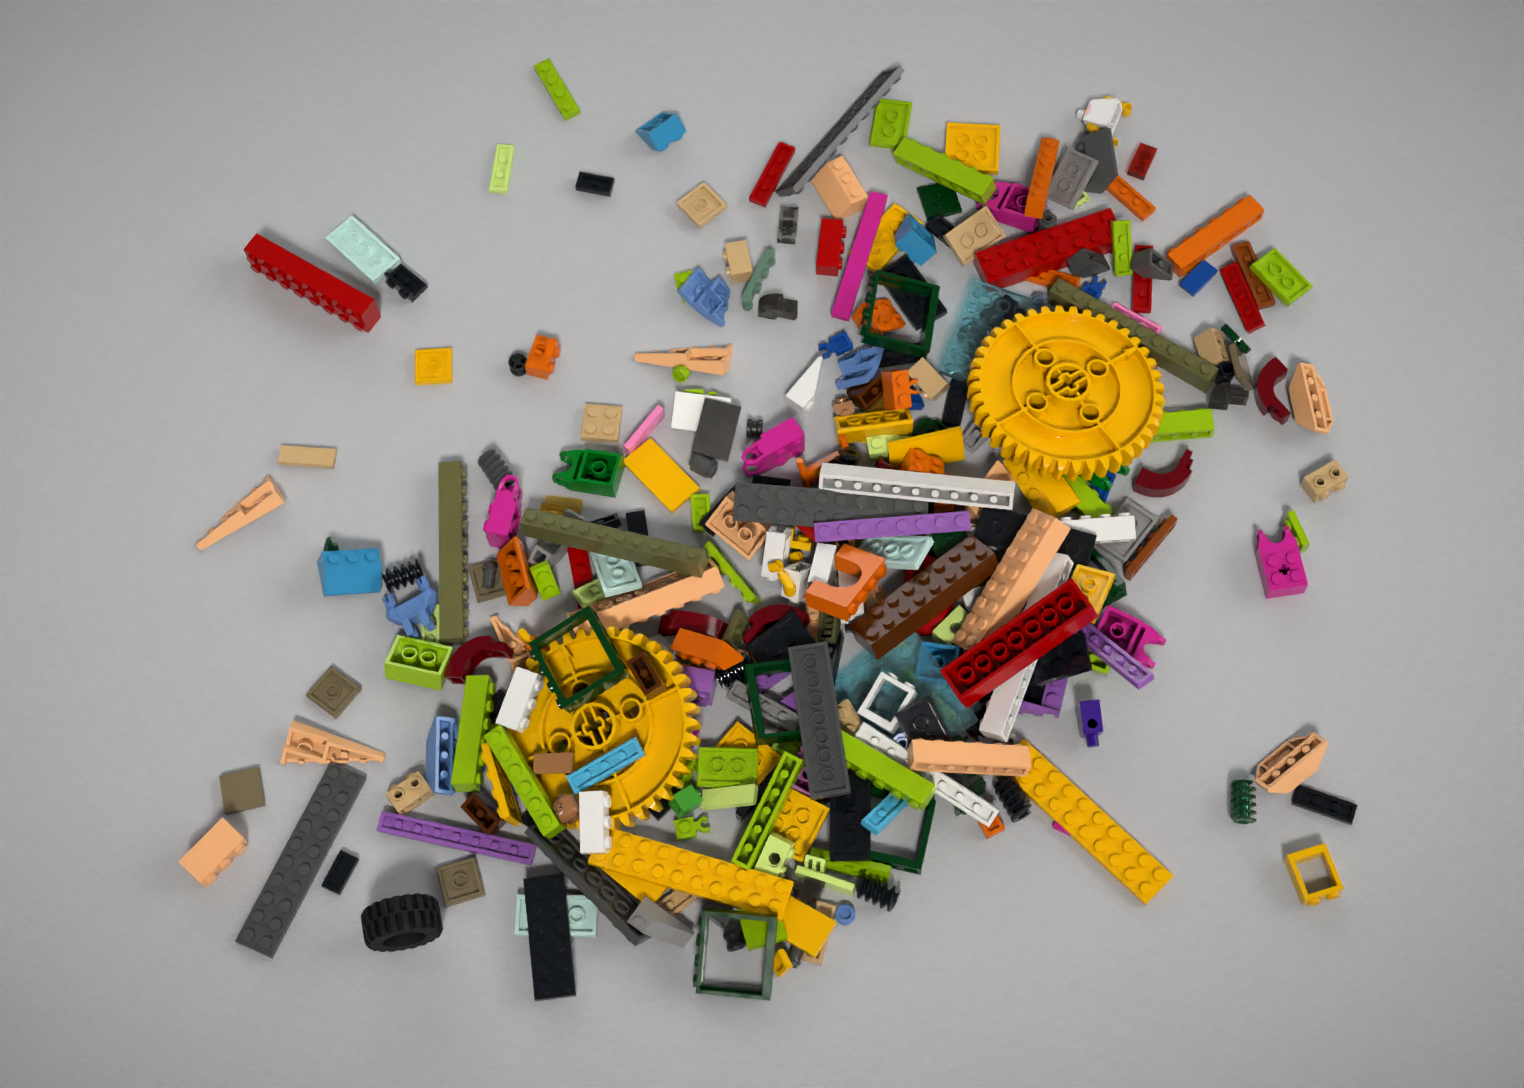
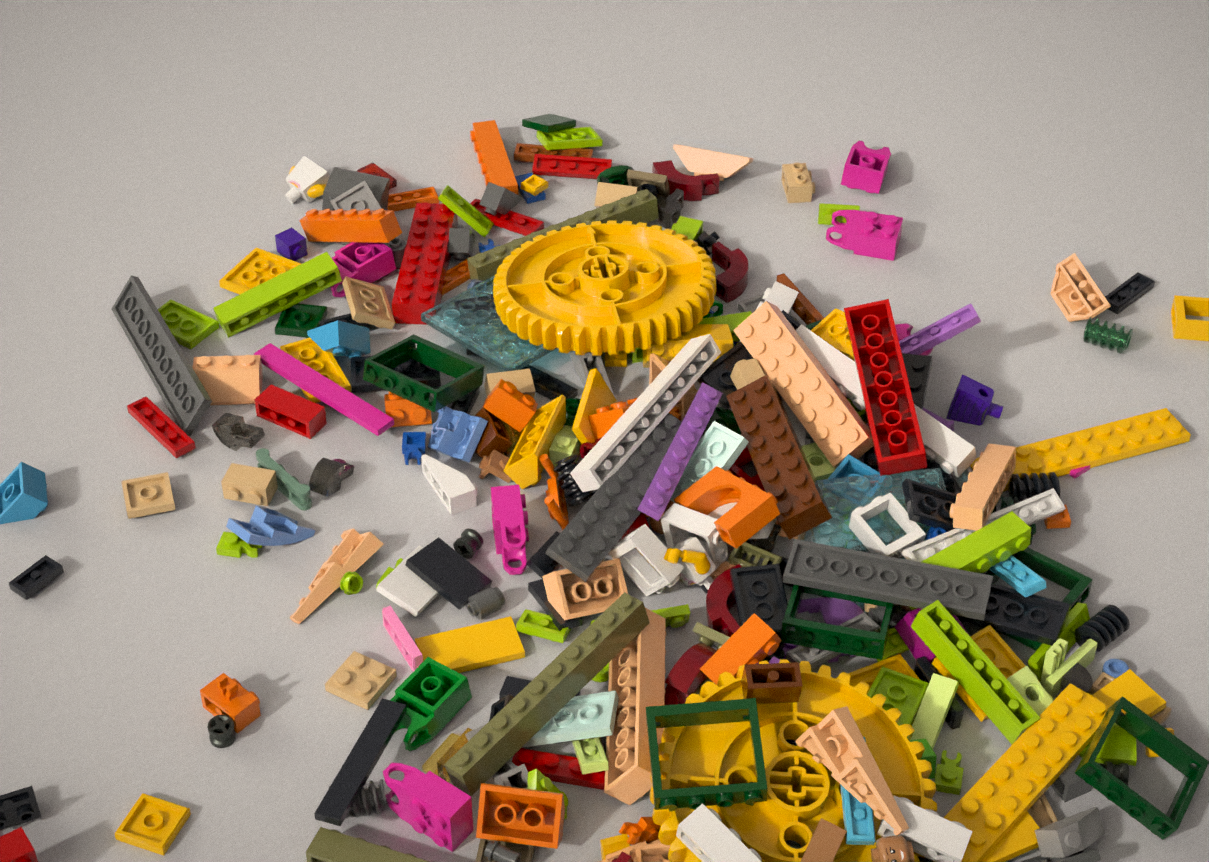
camera: 70 degrees left, 25 degrees down
(516, 458) = (360, 762): none -> black tile
(617, 746) = (845, 753): none -> light nougat wedge
(999, 540) = (746, 372): none -> tan brick
(1018, 147) = (291, 244): none -> dark purple brick
(1192, 442) = (706, 241): none -> black tile
(1197, 280) = (534, 185): none -> yellow tile
(1292, 251) = (549, 123): none -> dark green tile
(1379, 528) = (866, 168): none -> dark pink brick

